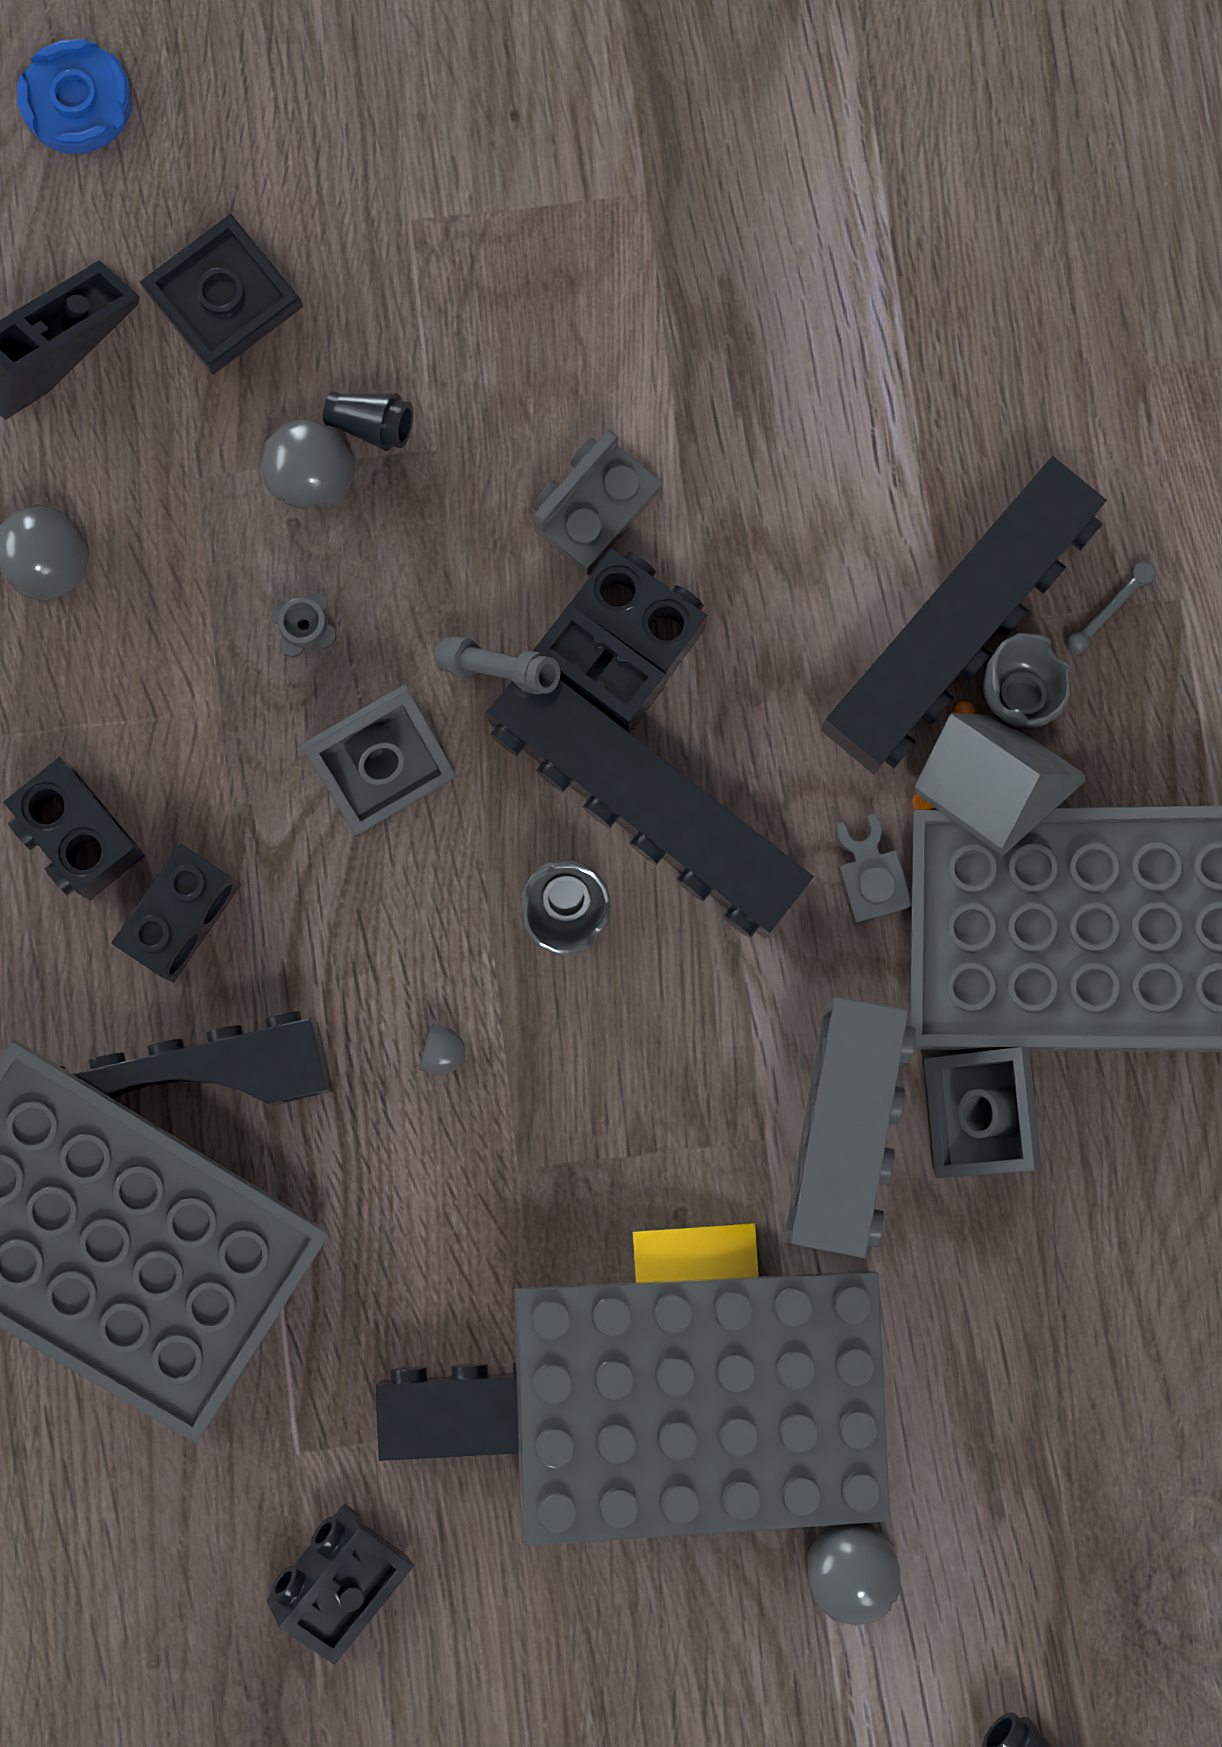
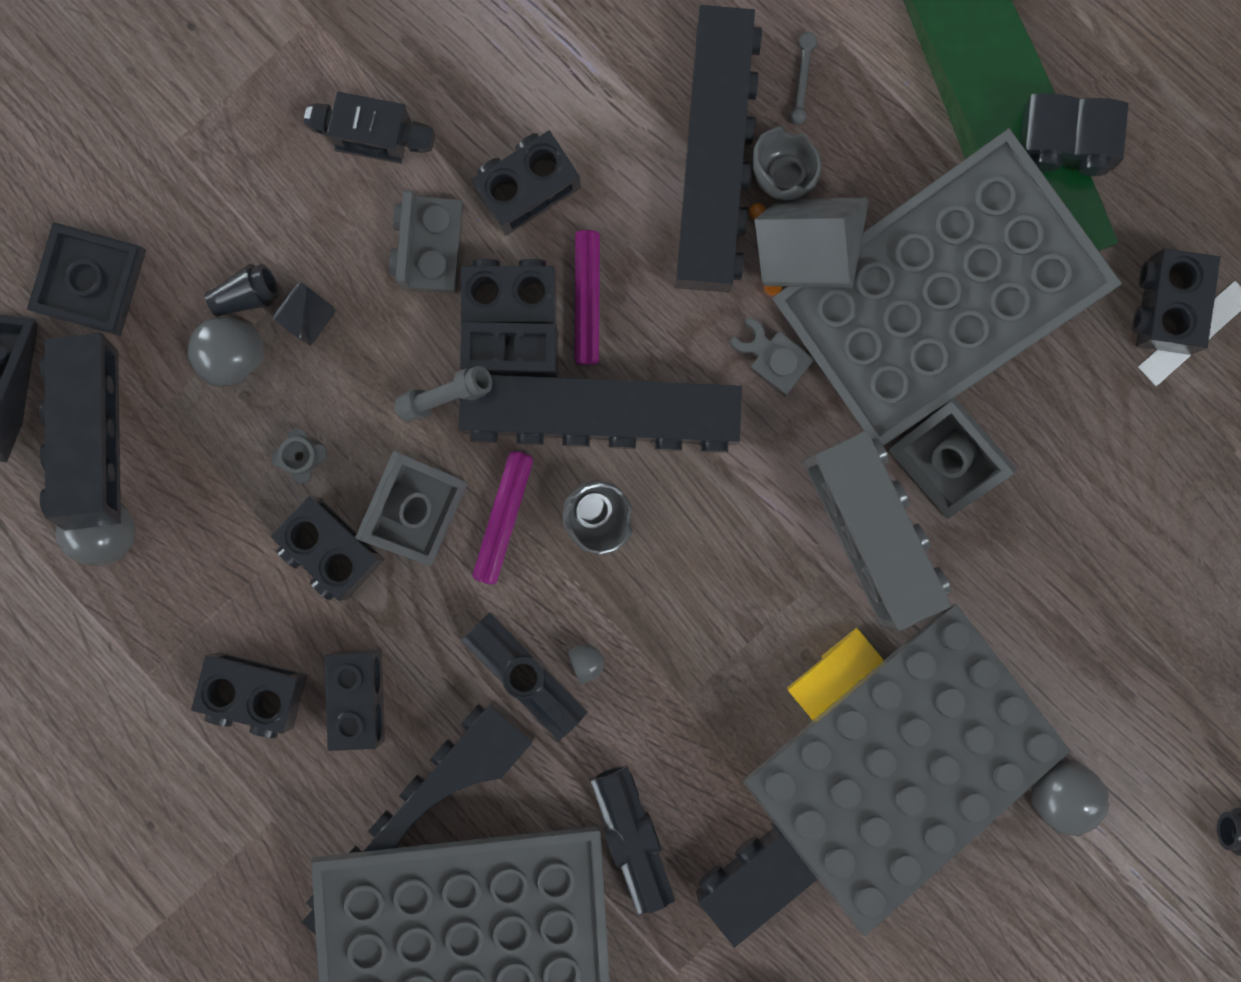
camera: 35 degrees left, 5 degrees up
(102, 442) = (81, 432): none -> black brick
(274, 736) = (334, 539): none -> black brick
(355, 1272) = (632, 839): none -> black piece
(364, 978) = (547, 698): none -> black piece
(416, 484) = (304, 313): none -> black slope
(466, 838) = (502, 517): none -> magenta axle
(621, 343) = (369, 127): none -> black piece
(719, 674) = (587, 297): none -> magenta axle
(741, 527) = (534, 192): none -> black brick

